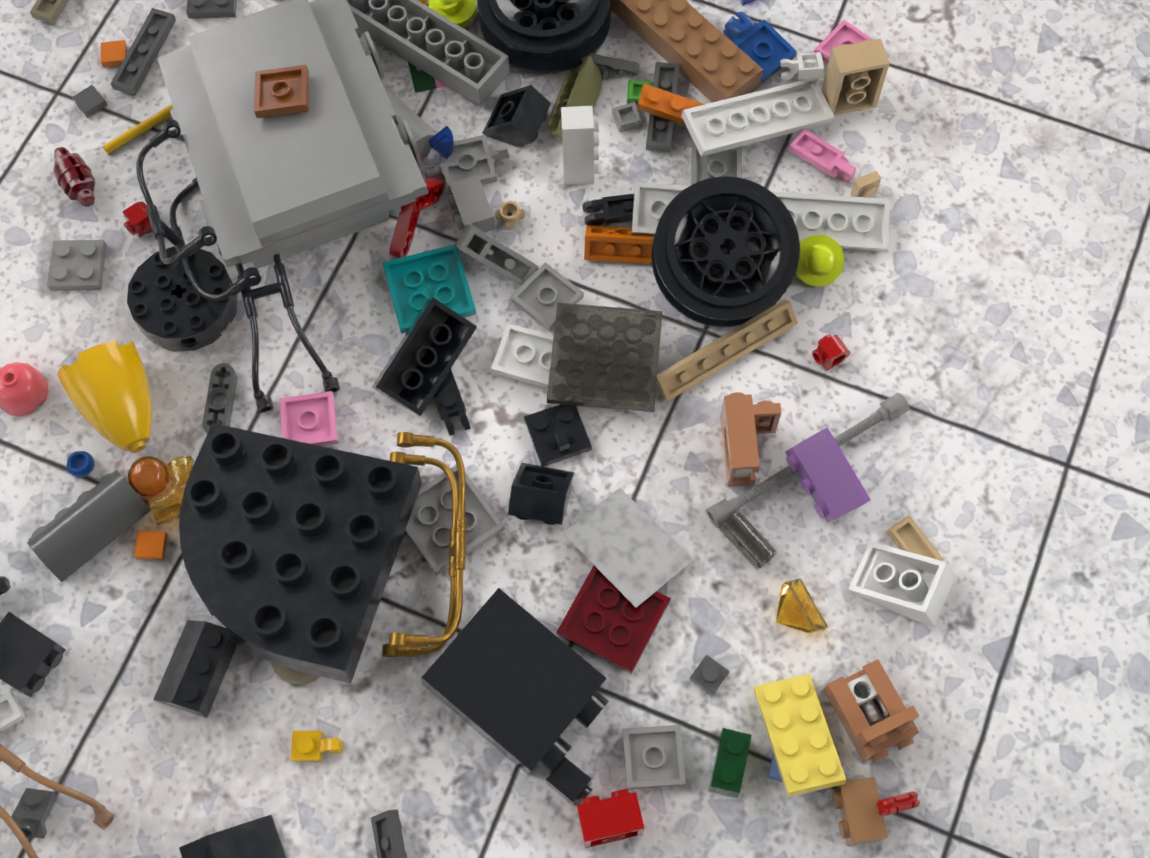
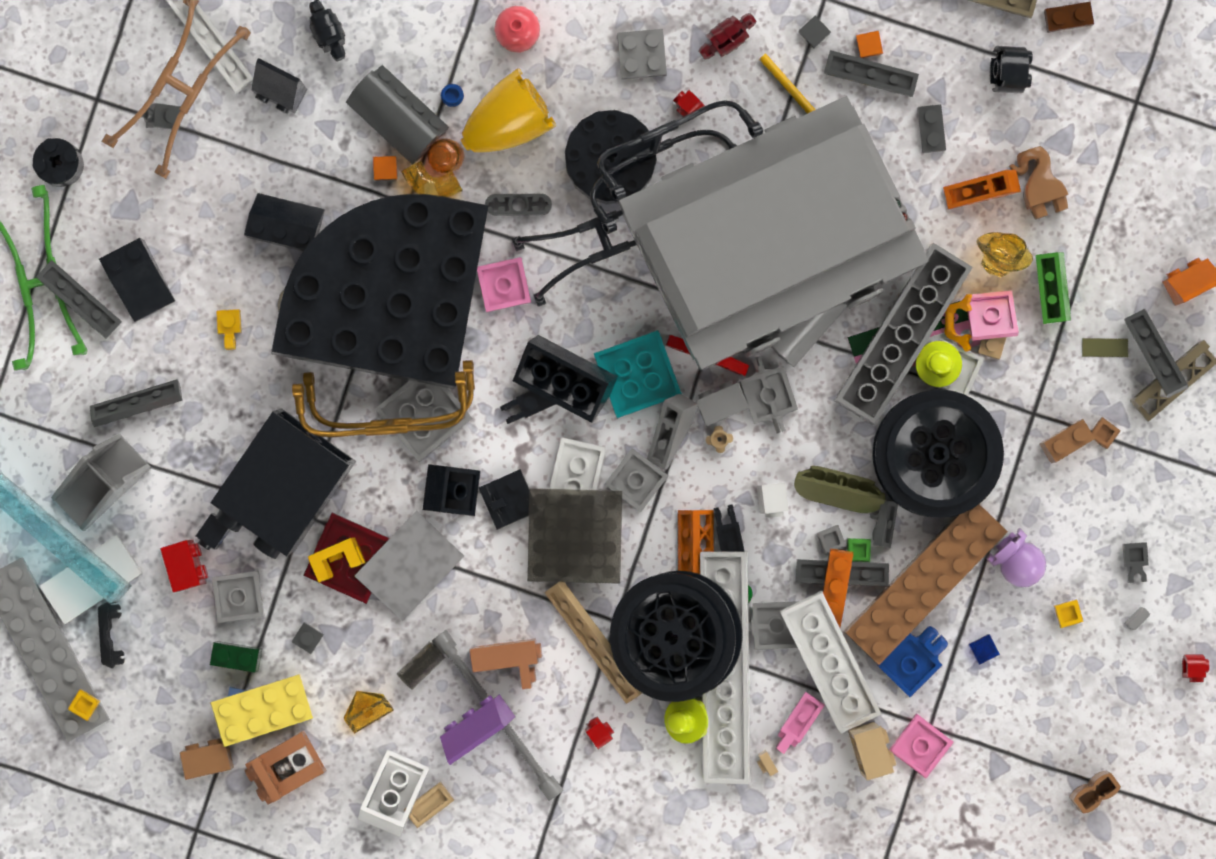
camera: 85 degrees right, 20 degrees up
(281, 91) = (786, 228): dark orange plate -> none
(443, 142) = (783, 372): clear blue tile -> none
(517, 116) = (820, 436): black slope -> none
(603, 604) = (319, 560): none -> yellow panel
(807, 65) = (891, 707): white plate -> none
(897, 803) = (212, 788): red axle -> none

